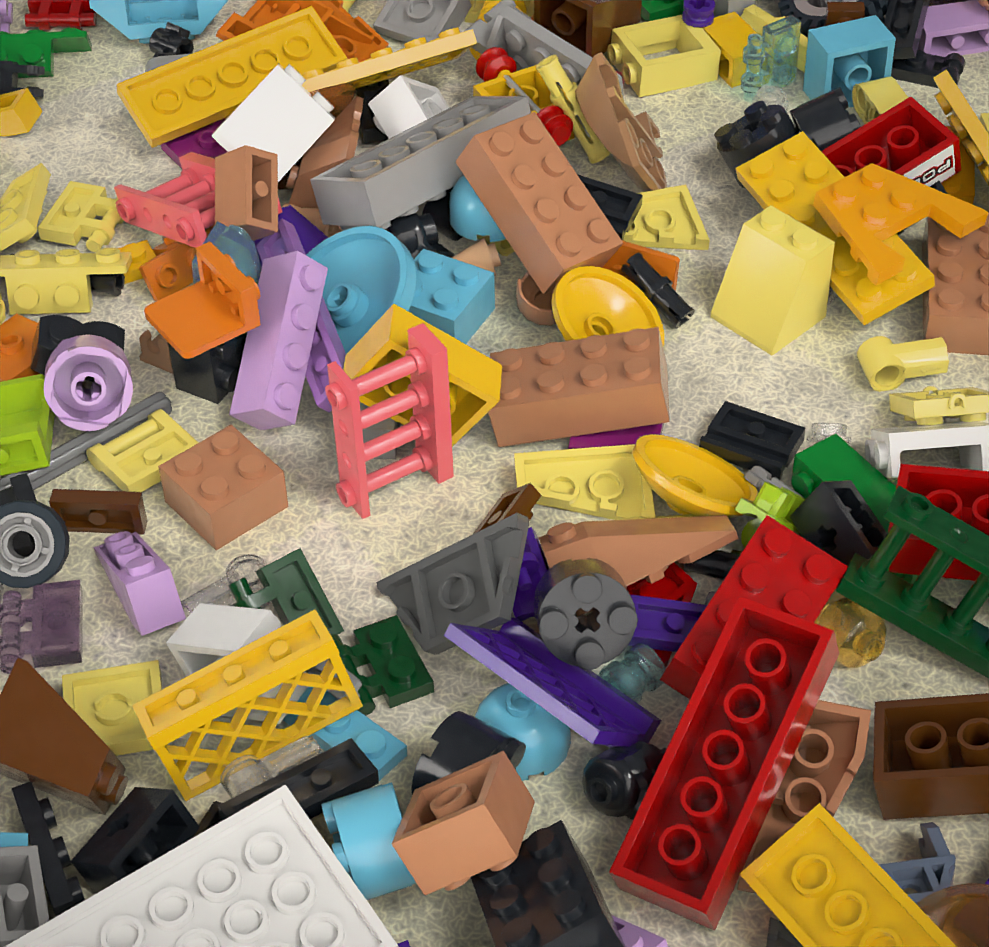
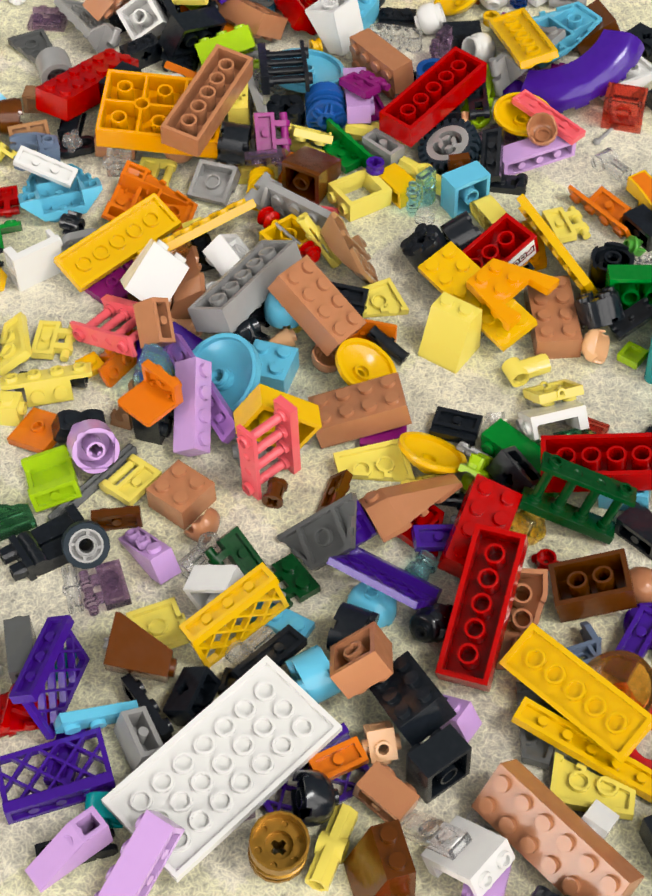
camera: 10 degrees left, 5 degrees up
(85, 92) = (35, 262): none -> white panel
(256, 537) = (205, 523): none -> nougat hair
(393, 507) = (275, 492): none -> reddish brown bush
(590, 638) = (406, 541): brick -> none
(869, 689) = (544, 555): none -> red plate

